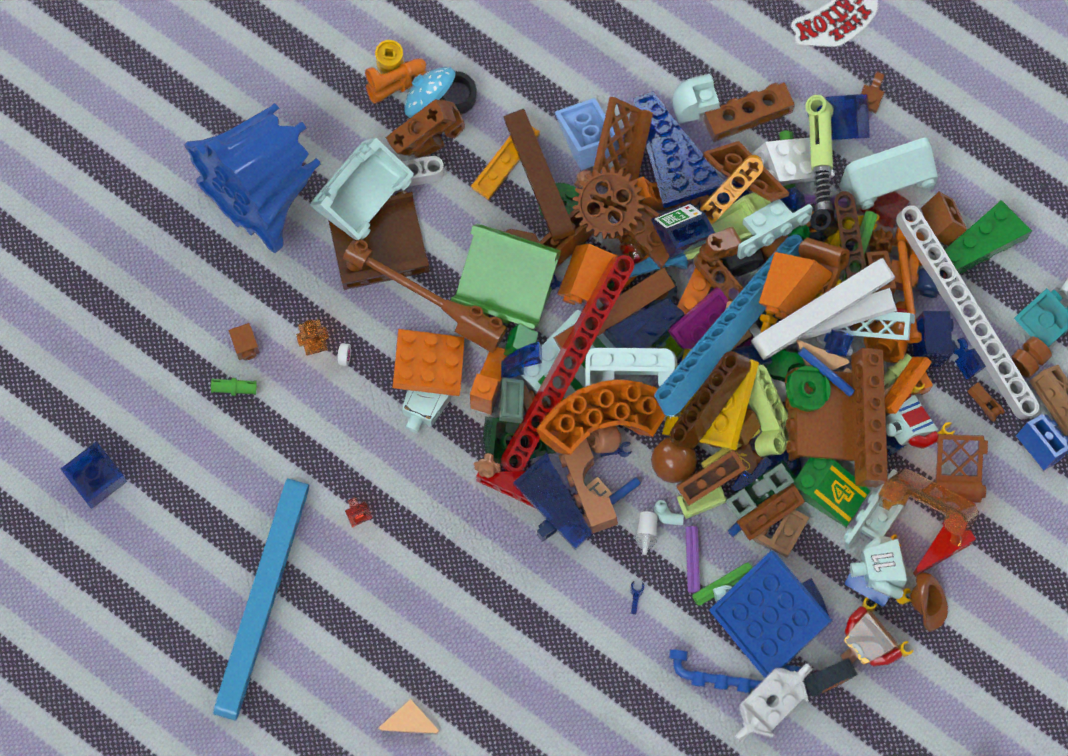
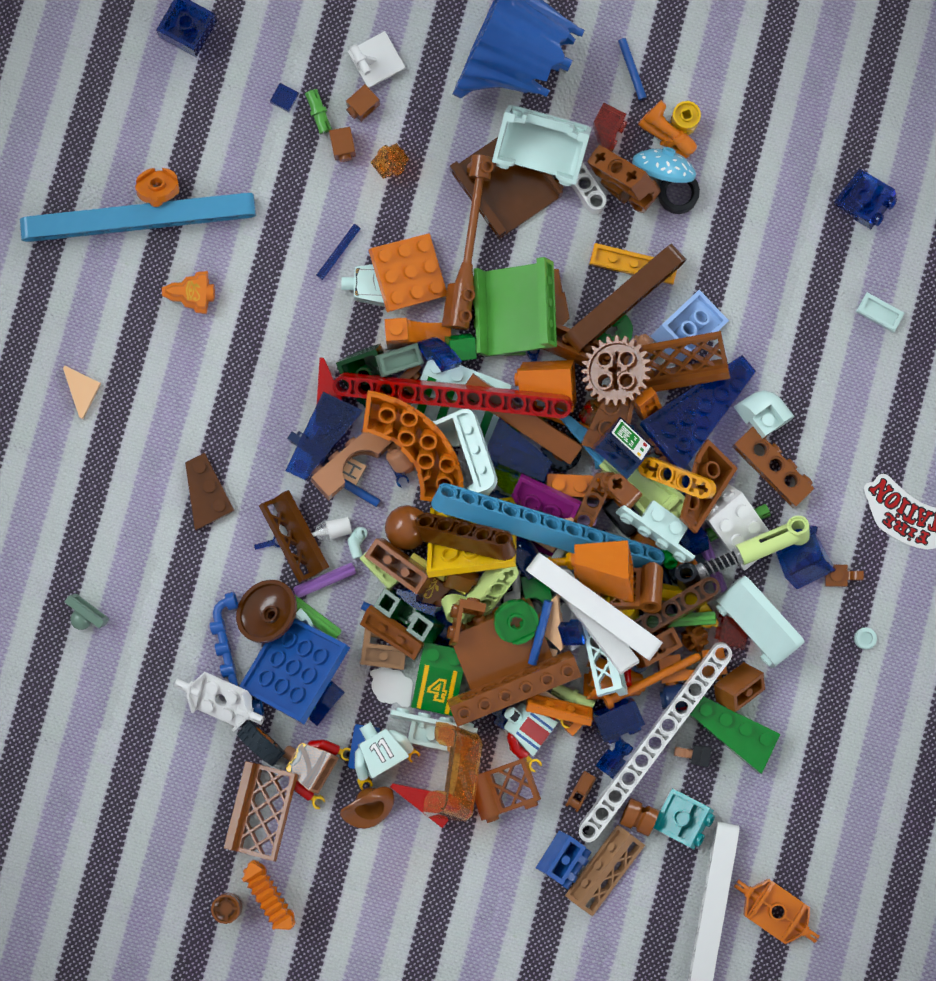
camera: 65 degrees right, 10 degrees up
(204, 414) = (284, 97): none -> clear blue tile
(207, 313) = (376, 59): none -> white plate
(249, 570) = (156, 196): none -> orange plate
(276, 376) = (342, 144): none -> dark orange brick
(319, 88) = (632, 69): none -> blue bar
(344, 354) = (387, 195): white tile -> none
(357, 512) = (247, 267): clear red tile -> none
(359, 574) = (193, 292): none -> orange rock
(365, 126) = (608, 124): none -> clear red slope
(375, 418) = (338, 251): none -> clear blue bar
(486, 466) = (328, 363): nougat plant -> none
(561, 638) = (206, 492): none -> reddish brown wing
(639, 566) = (297, 535): none -> reddish brown fence
(691, 627) = (258, 607): none -> reddish brown dish
(780, 437) = (470, 606): none -> dark orange bracket
(819, 537) = (391, 686): none -> white sticker
(886, 720) = (246, 802): none -> fence
(937, 96) = (865, 638): none -> light aqua tile
(982, 728) = (268, 896): none -> orange piece
(991, 283) = (699, 754): none -> black piece

